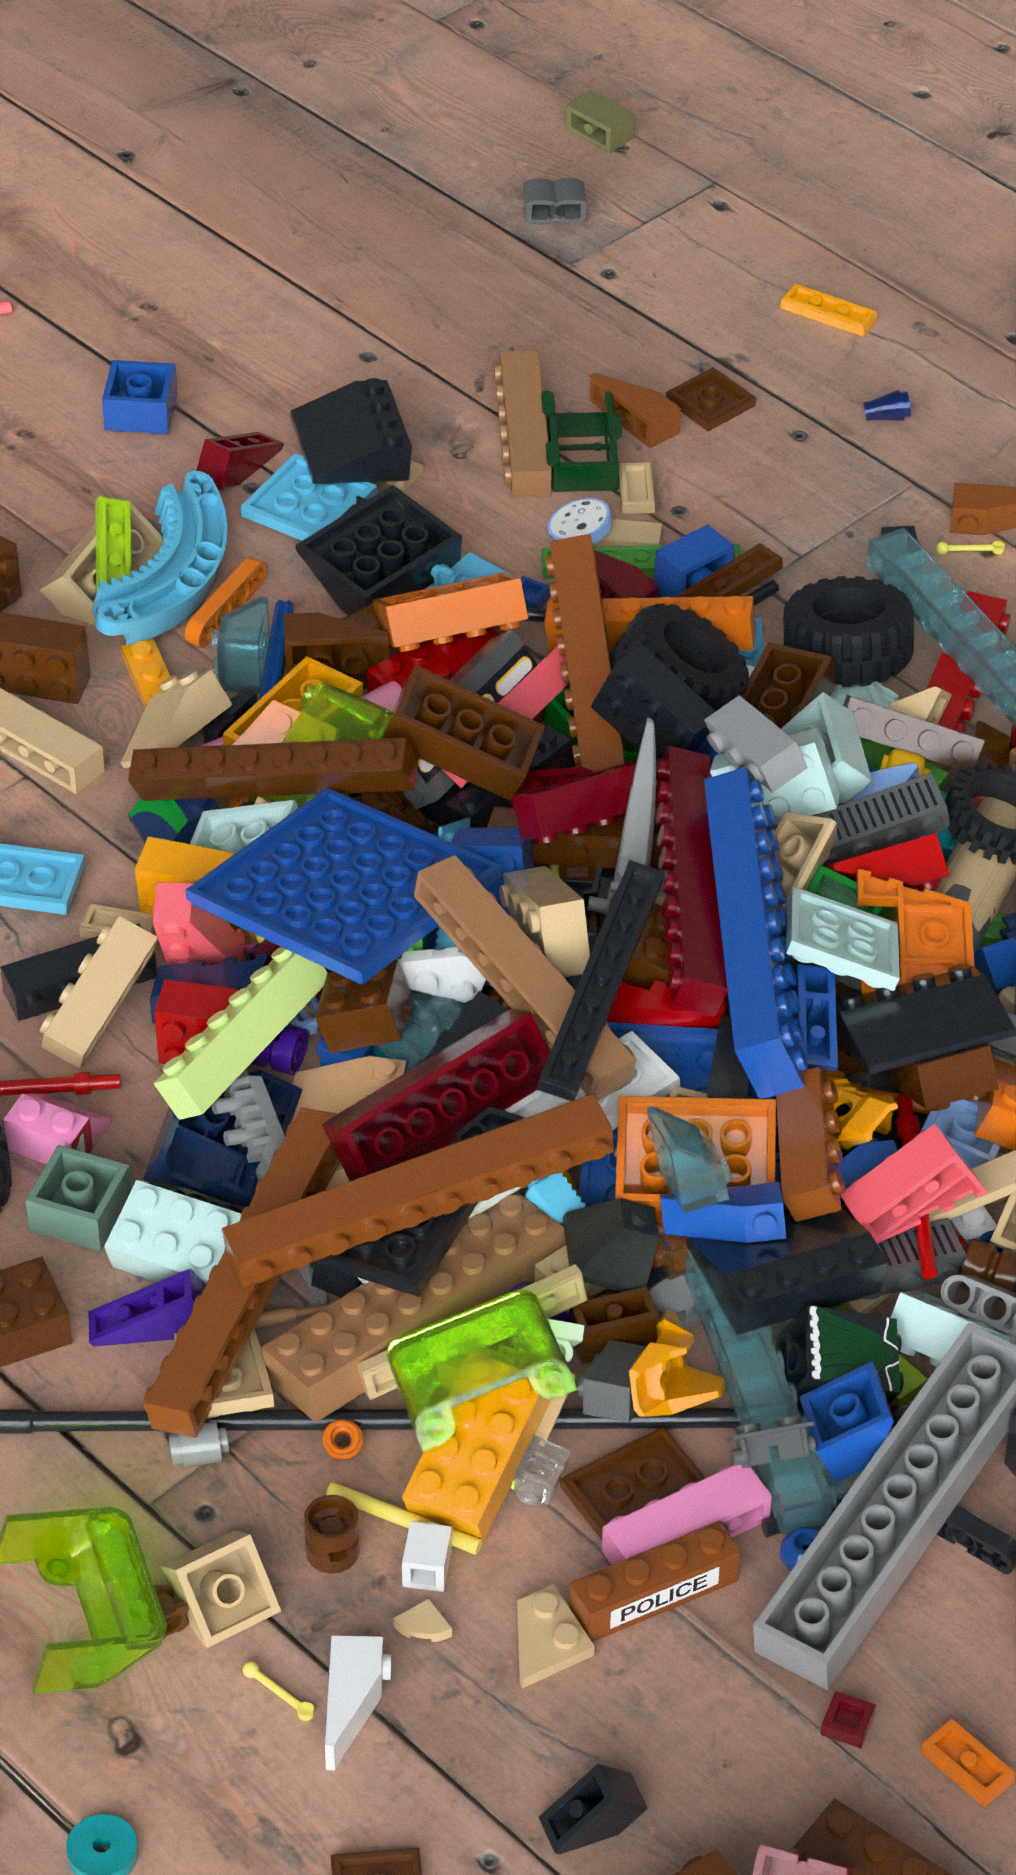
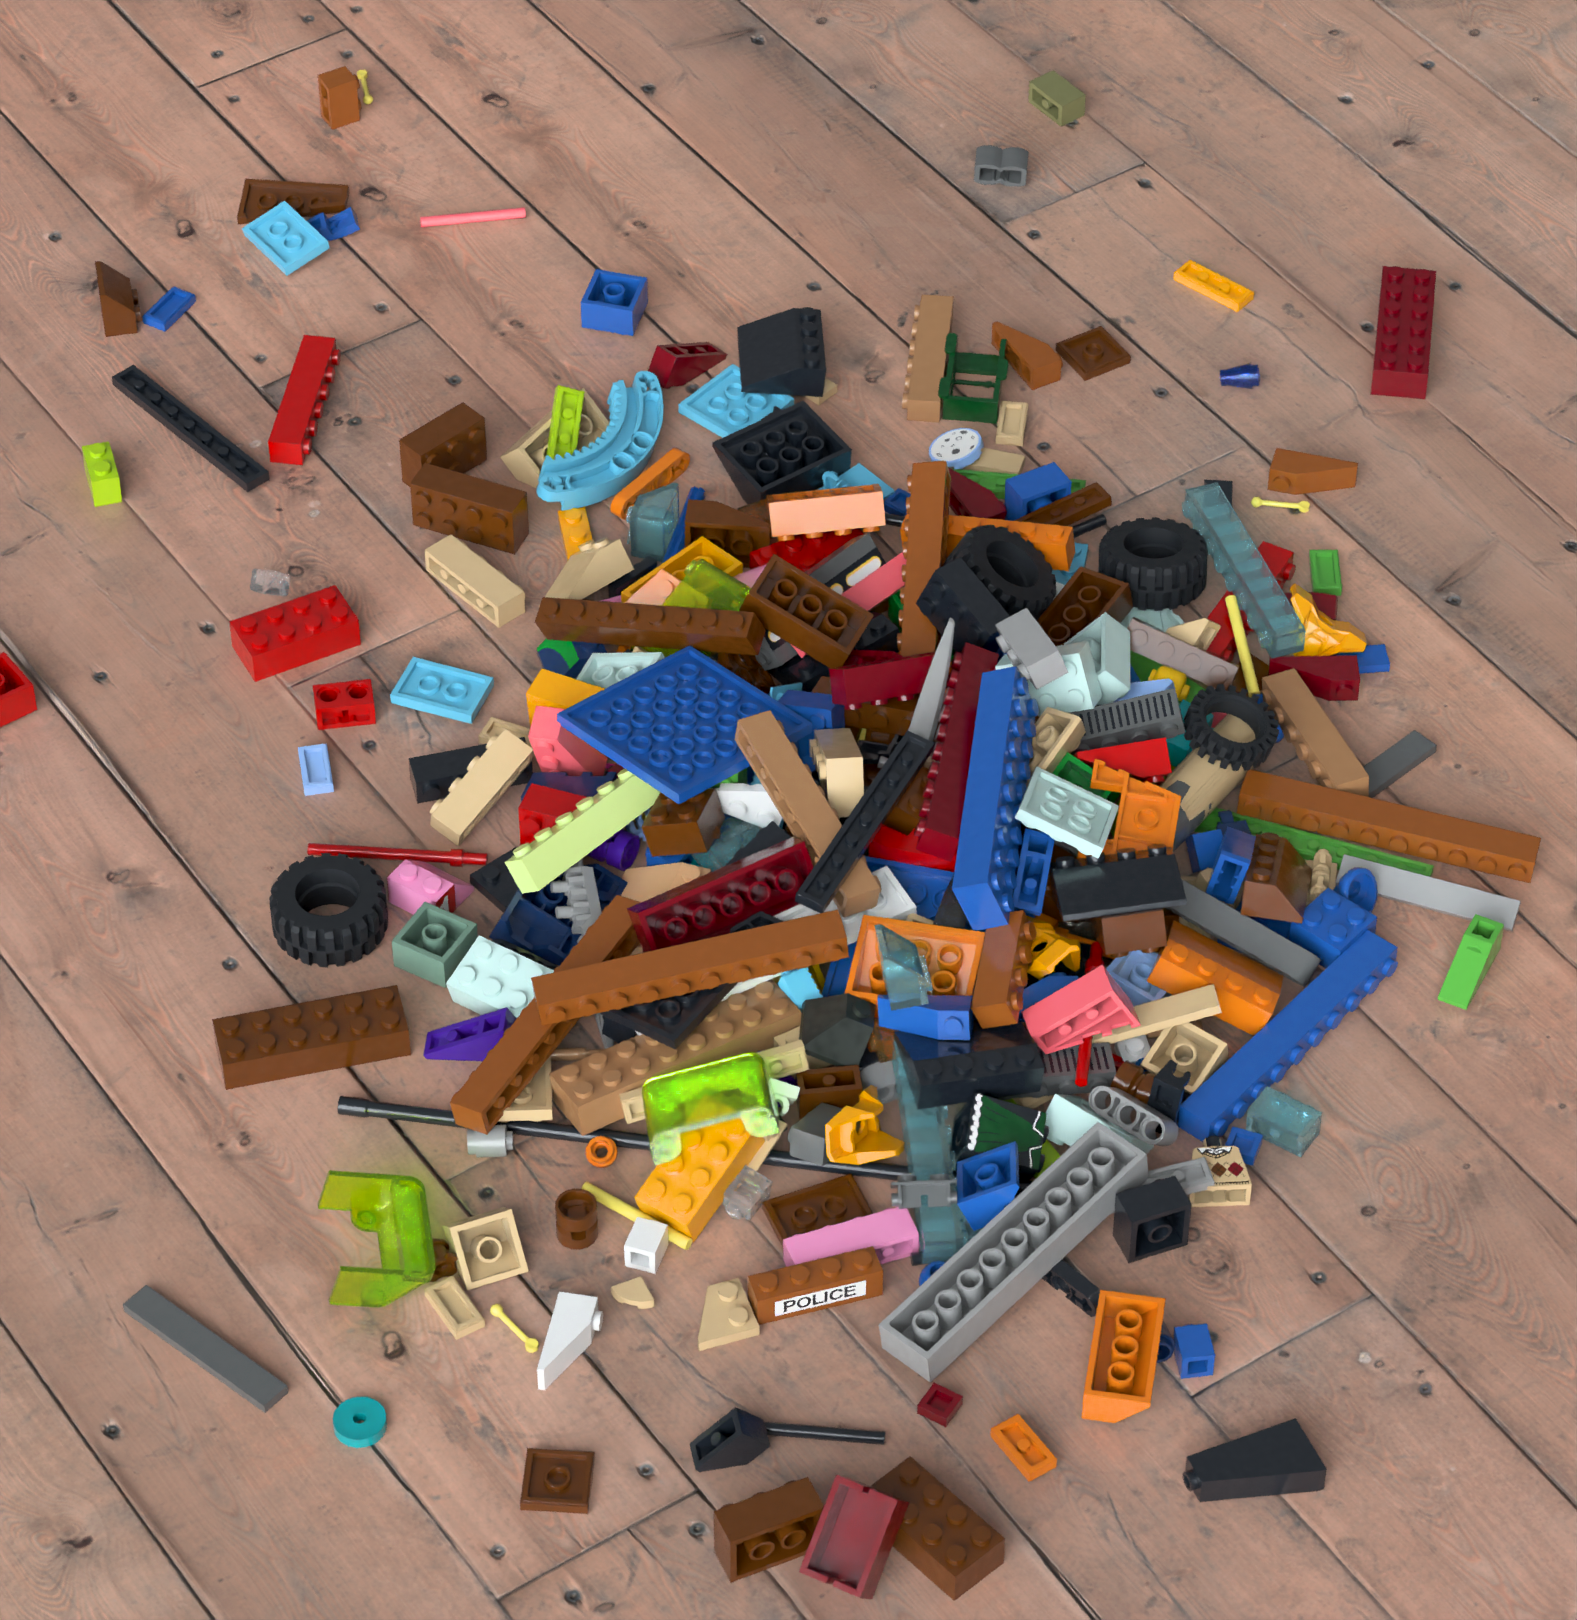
camera: 10 degrees right, 0 degrees up
(140, 1105) = (496, 881): none -> black wing
(195, 1673) = (454, 1307): none -> tan tile
(712, 1778) = (825, 1433): none -> black bar
(975, 711) = (1242, 645): none -> light yellow bar

